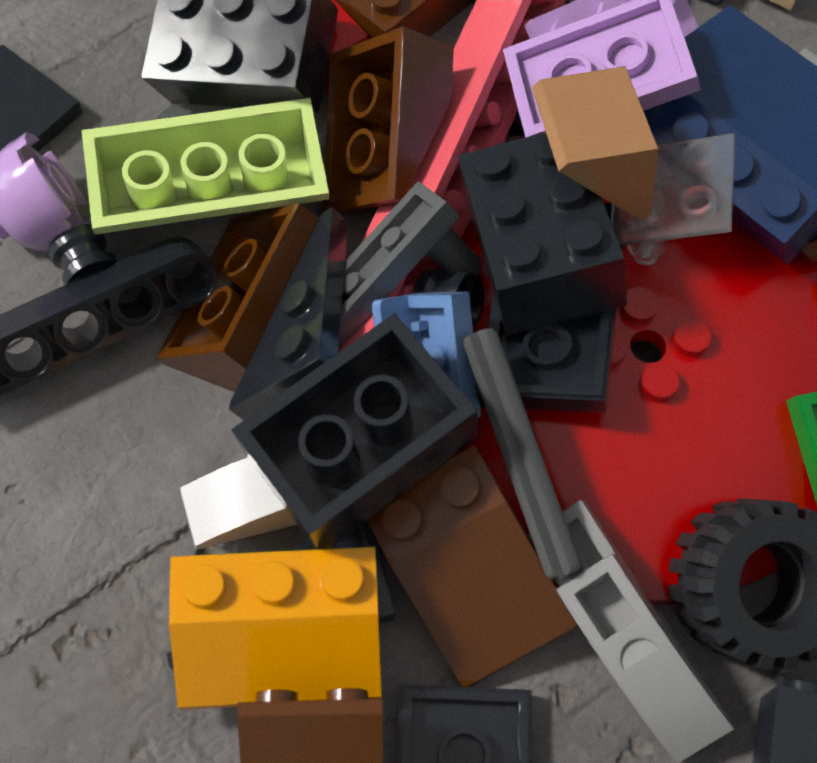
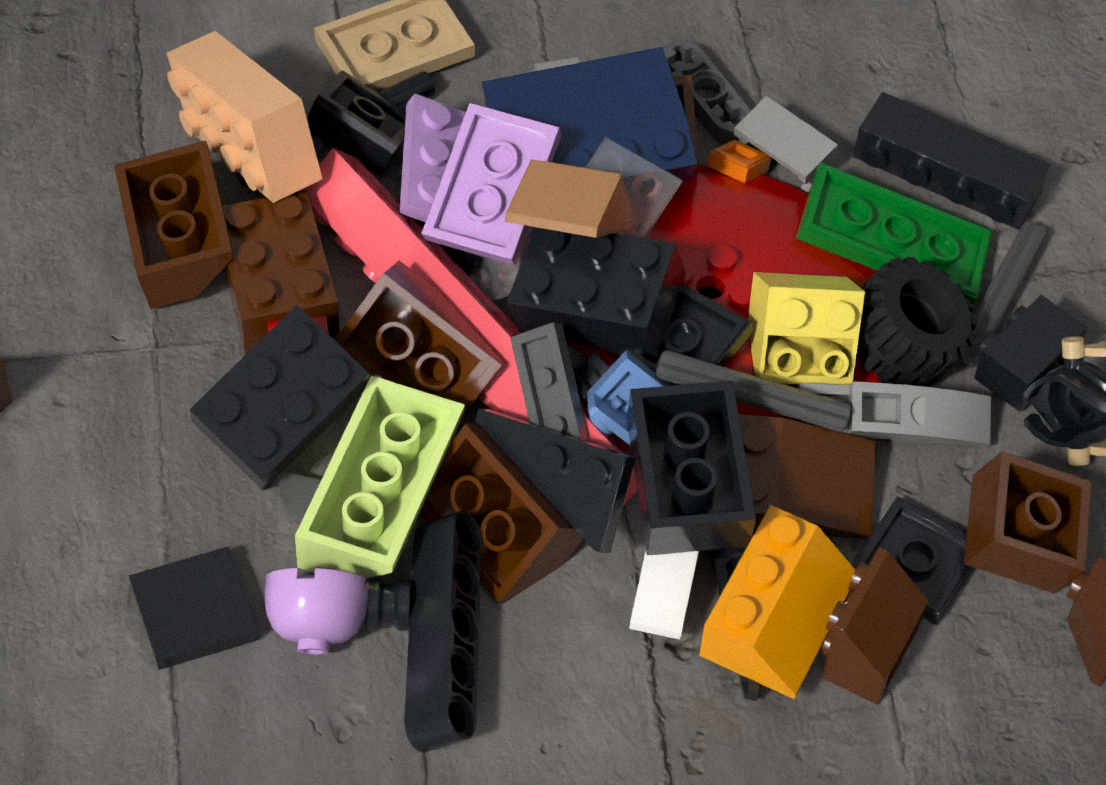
camera: 60 degrees left, 10 degrees down
(654, 465) = (804, 328): none -> light yellow slope

